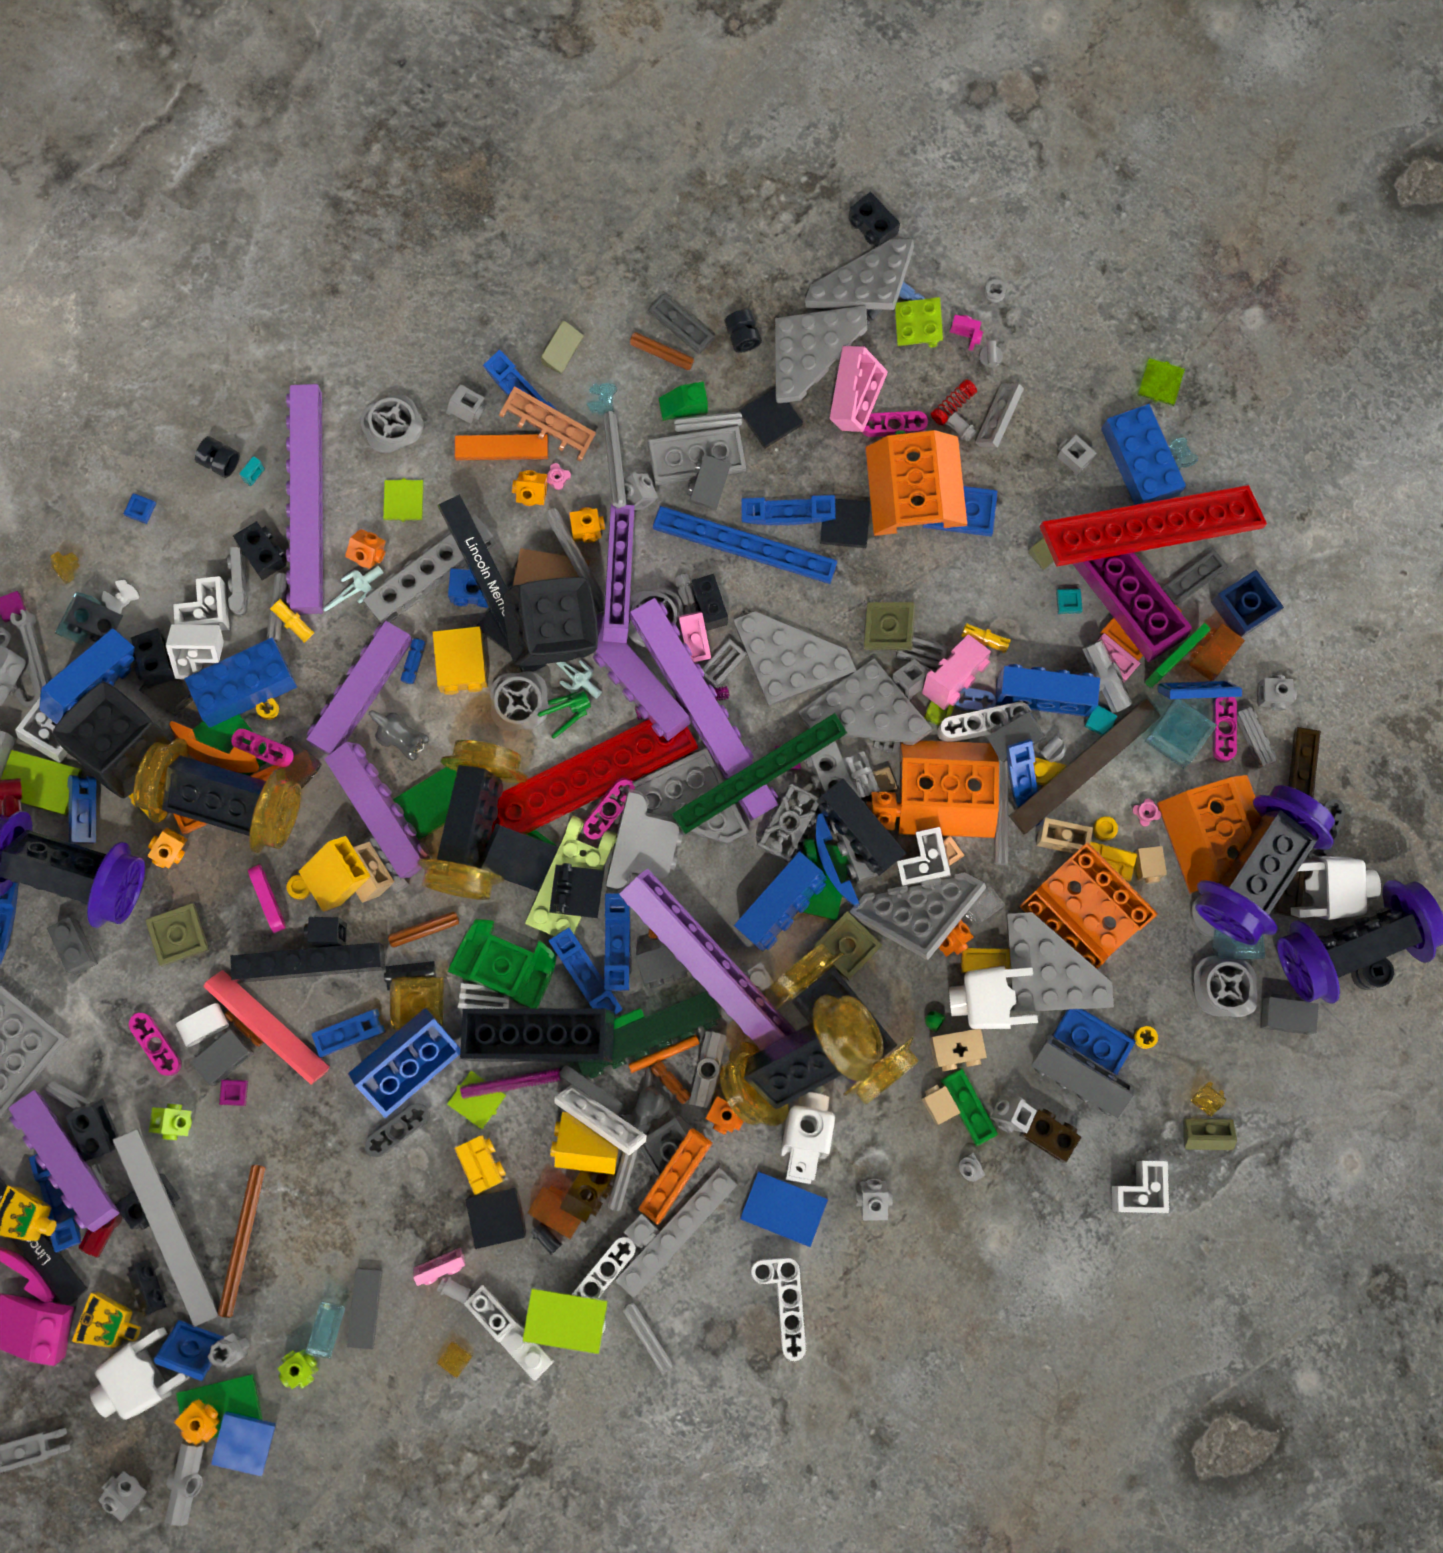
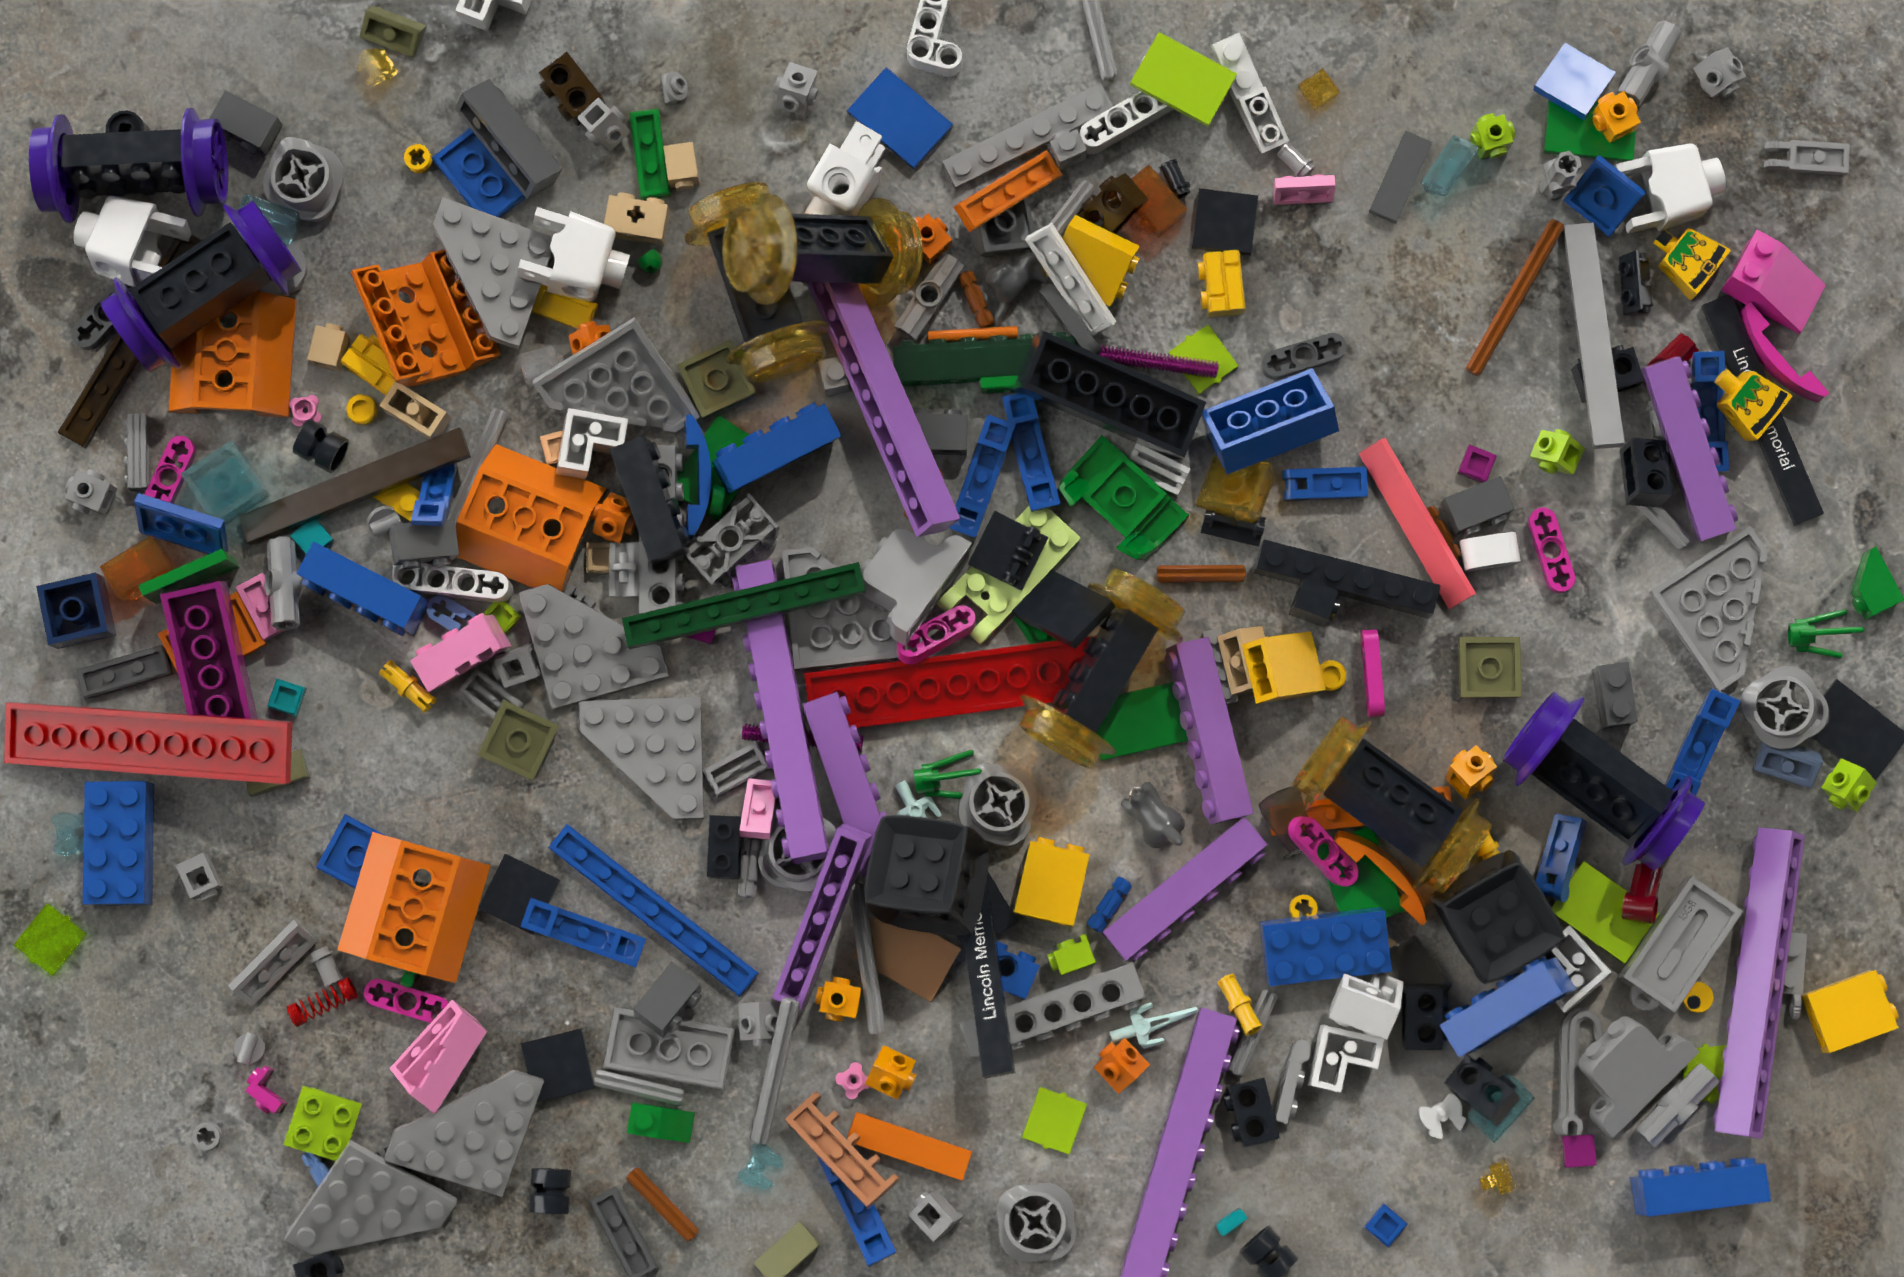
camera: 155 degrees left, 5 degrees up
(427, 613) = (1071, 956): none -> lime brick
(1115, 788) = (323, 447): none -> black wheel

